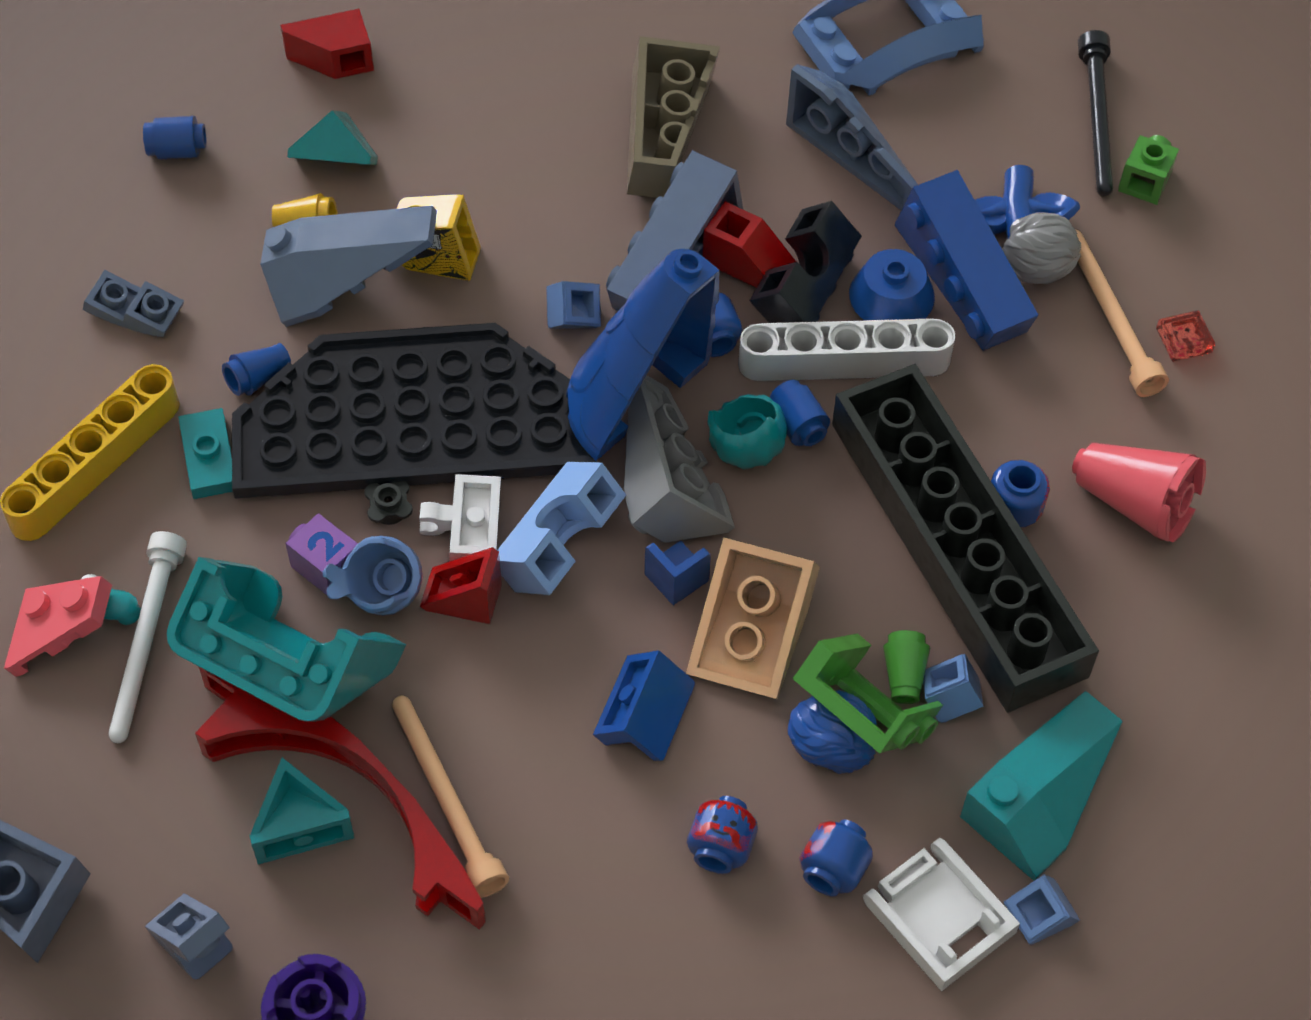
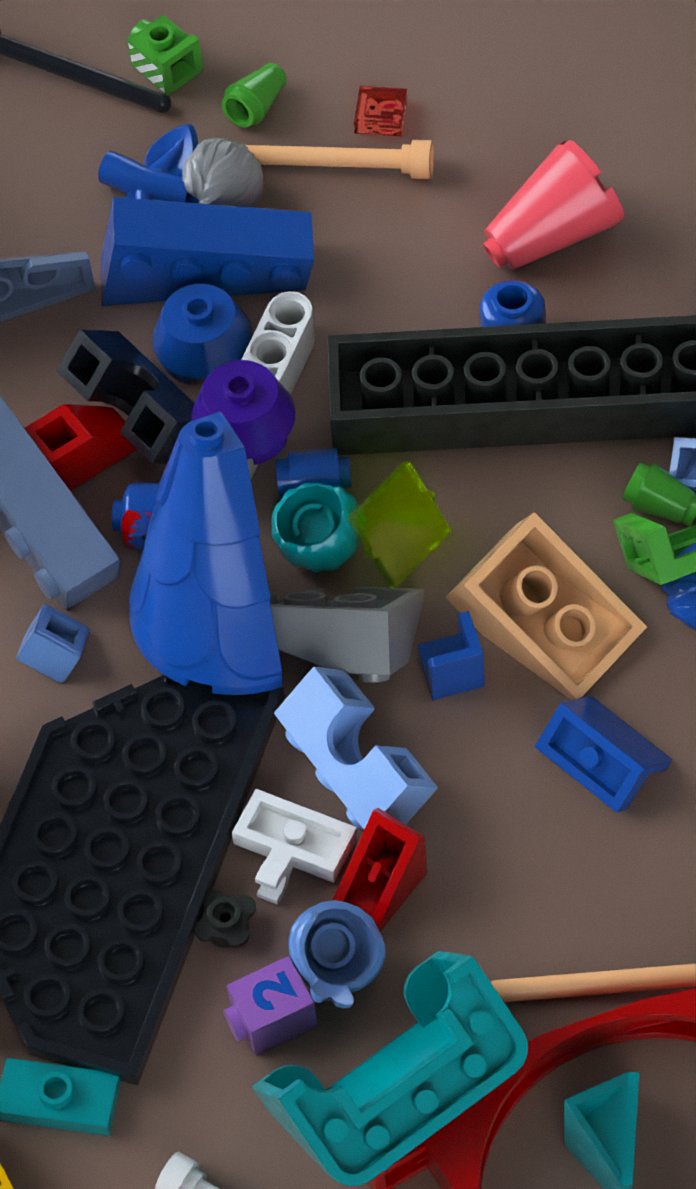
camera: 60 degrees left, 0 degrees up
(776, 483) = (399, 524): none -> clear neon green piece
(810, 333) = (252, 404): none -> dark purple cone
(1145, 242) = (251, 97): none -> bright green cone

